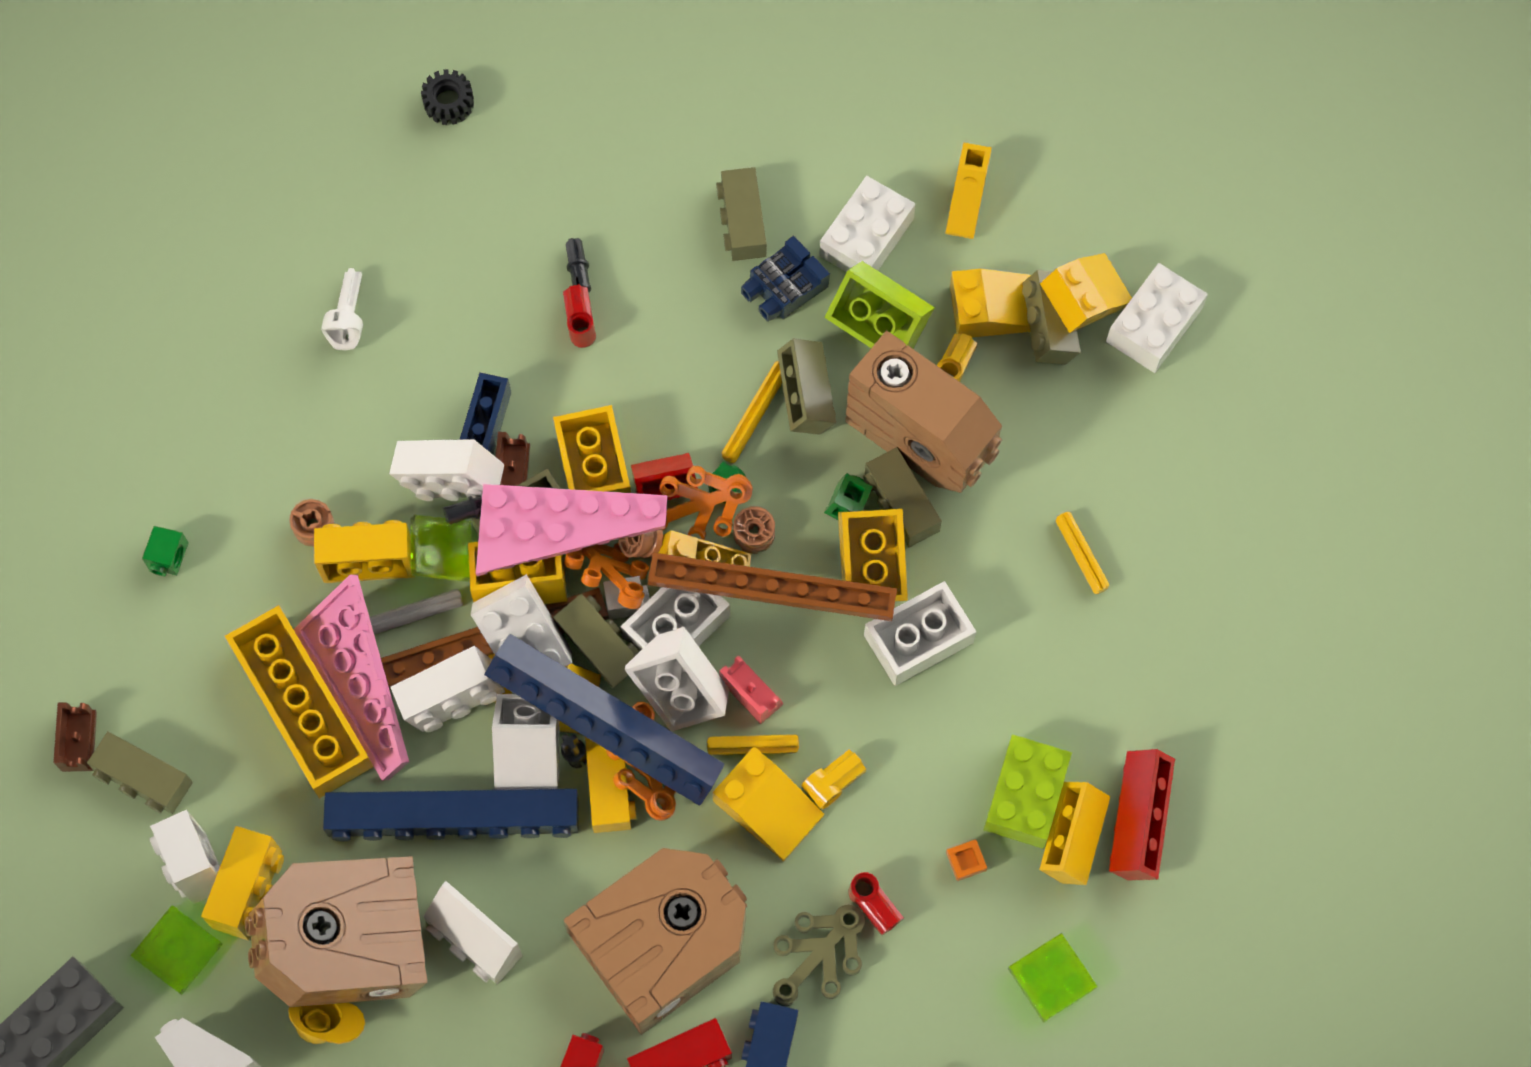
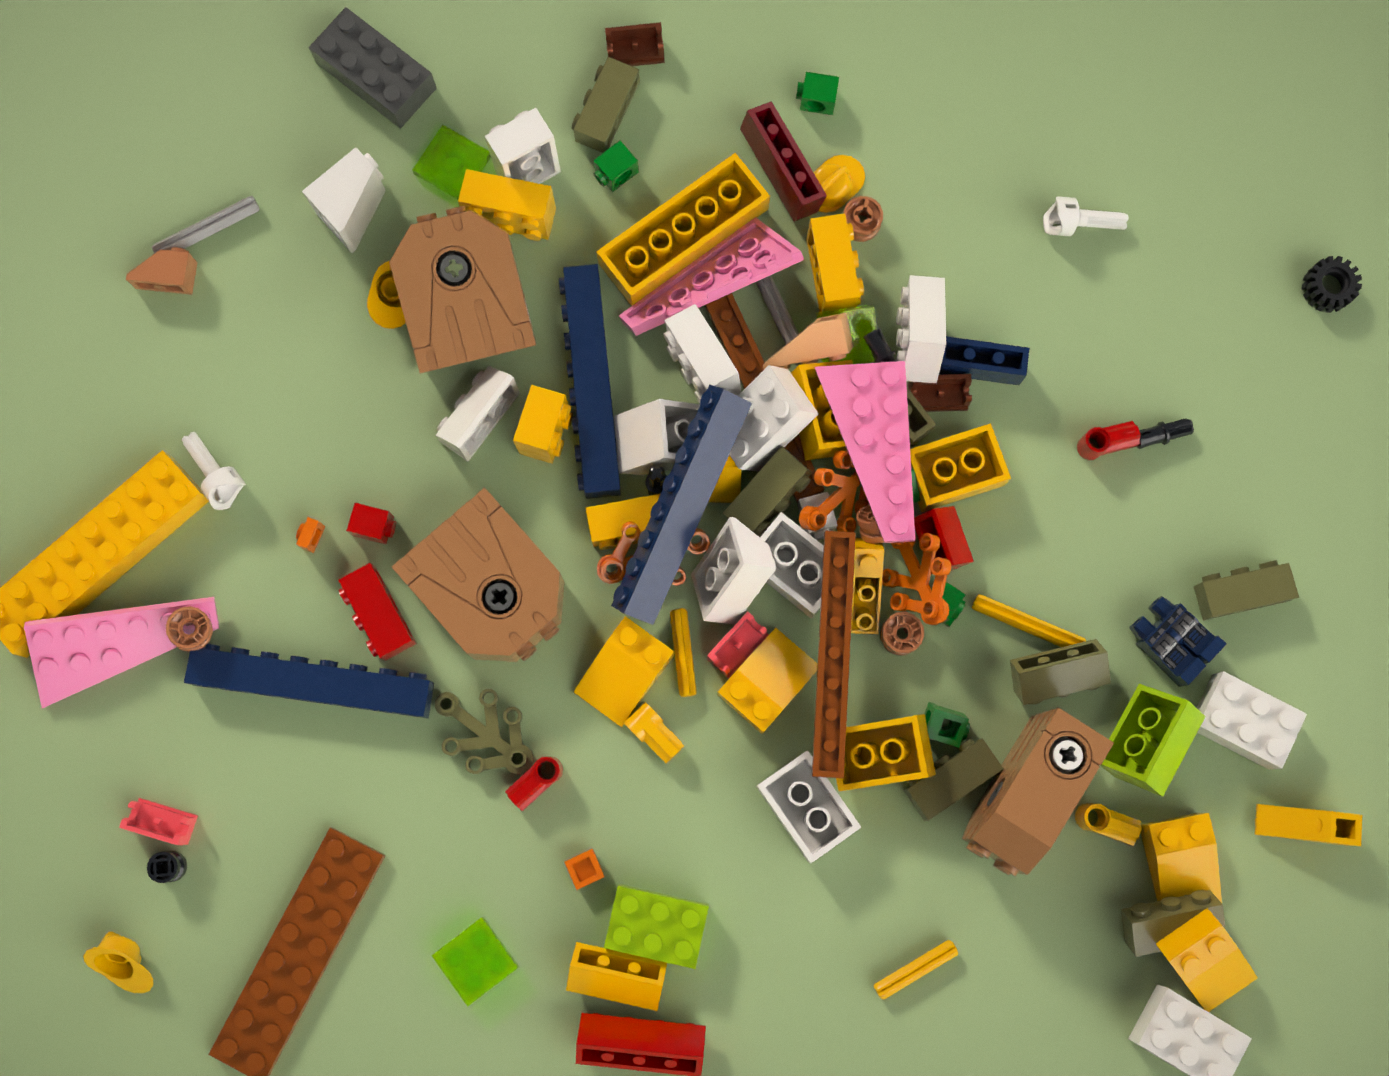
camera: 85 degrees right, 10 degrees up
(213, 769) = (615, 166): none -> green brick
(237, 593) = (782, 161): none -> dark red brick
(266, 548) = (840, 179): none -> yellow piece
(445, 574) = (821, 339): none -> light nougat slope
(496, 862) = (542, 424): none -> yellow brick
(791, 663) = (768, 680): none -> yellow slope

